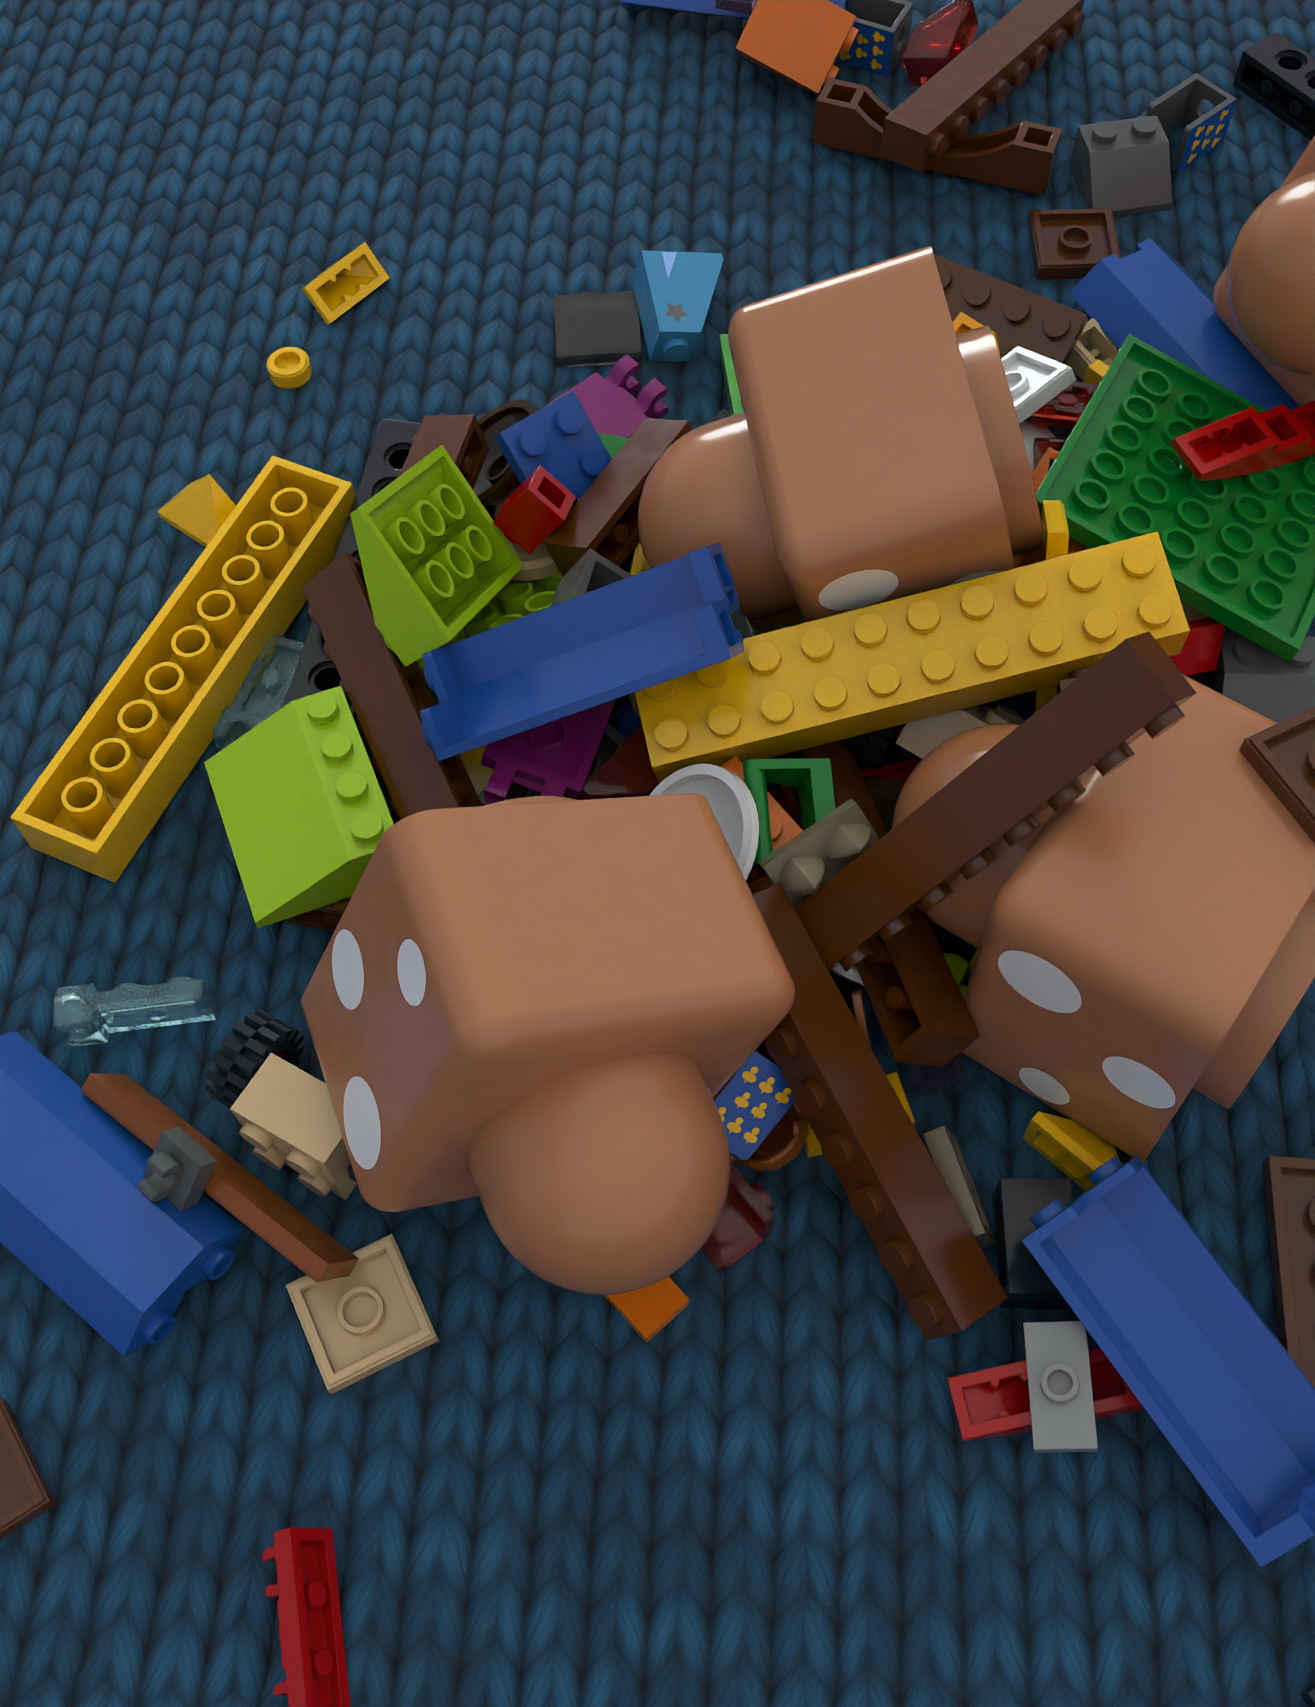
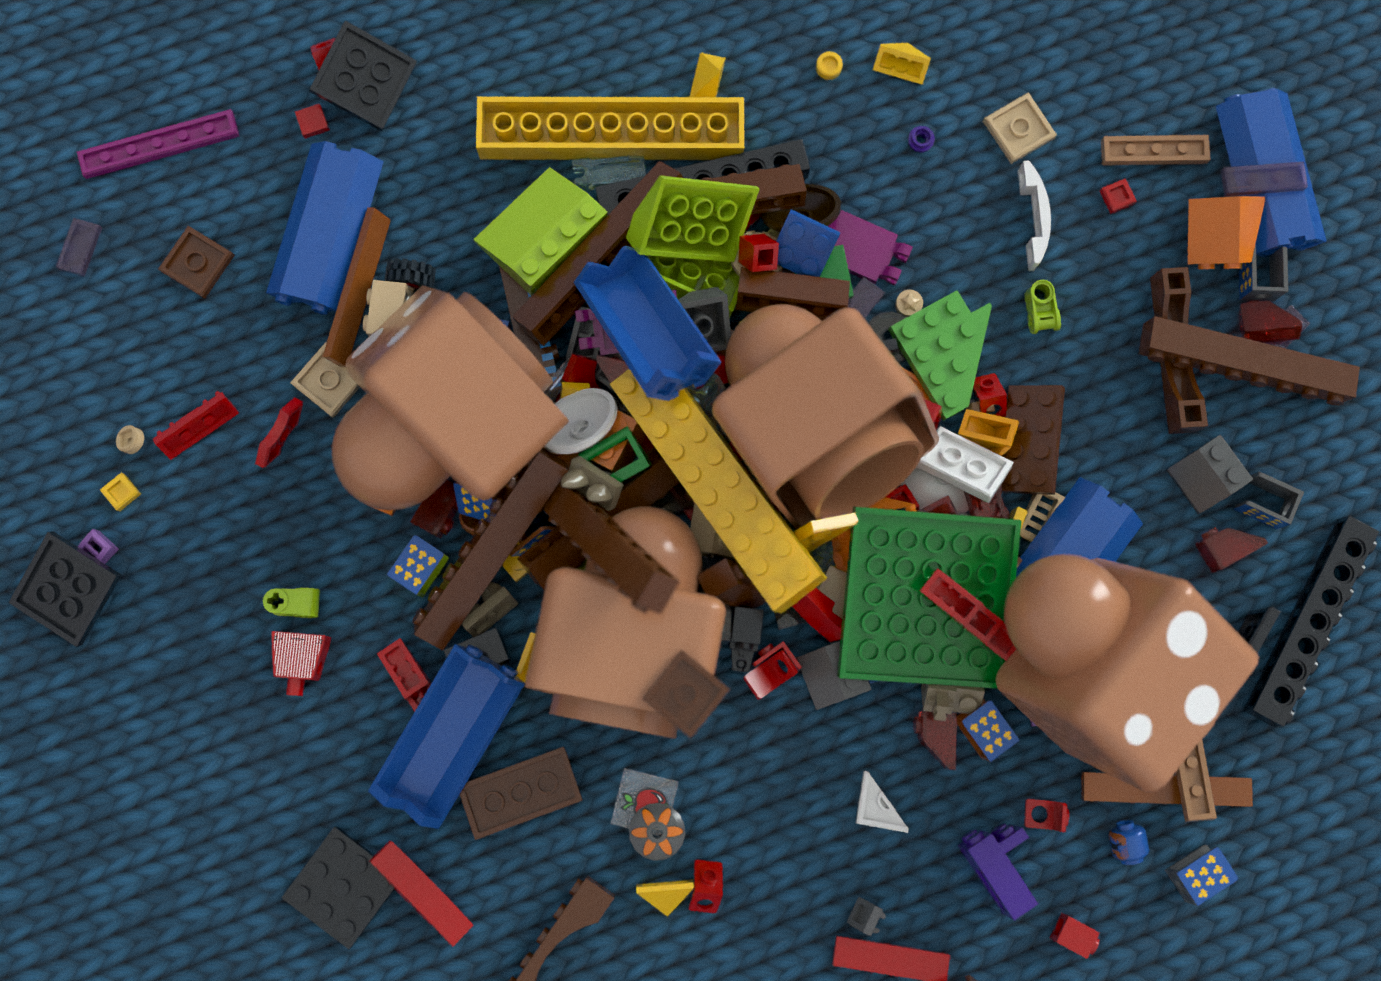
camera: 60 degrees right, 20 degrees up
(129, 1007) = (408, 191): clear light blue plate -> none
(177, 1170) = (343, 271): dark grey tile -> none
(421, 1449) = (286, 421): none -> red tile
(469, 301) = (924, 132): none -> dark purple plate
(522, 200) = (1019, 128): none -> tan tile
(596, 328) = (935, 219): clear smoke tile -> none
(640, 79) = (1155, 150): none -> medium nougat plate
(656, 210) = (1031, 184): none -> white slope
(674, 299) = (968, 255): dark azure slope -> none
(680, 137) = (1118, 196): none -> red tile
(705, 400) = (908, 302): none -> tan tile
(788, 1566) = (297, 602): none -> lime piece
(790, 254) = (1042, 313): none -> lime piece
(818, 1280) = (418, 566): none -> blue piece
(914, 1614) = (298, 658): none -> red torso
(1060, 1387) = (407, 684): light grey plate -> none
(1070, 241) = (1136, 466): reddish brown tile -> none
(1235, 184) = (1227, 546): none -> clear red slope

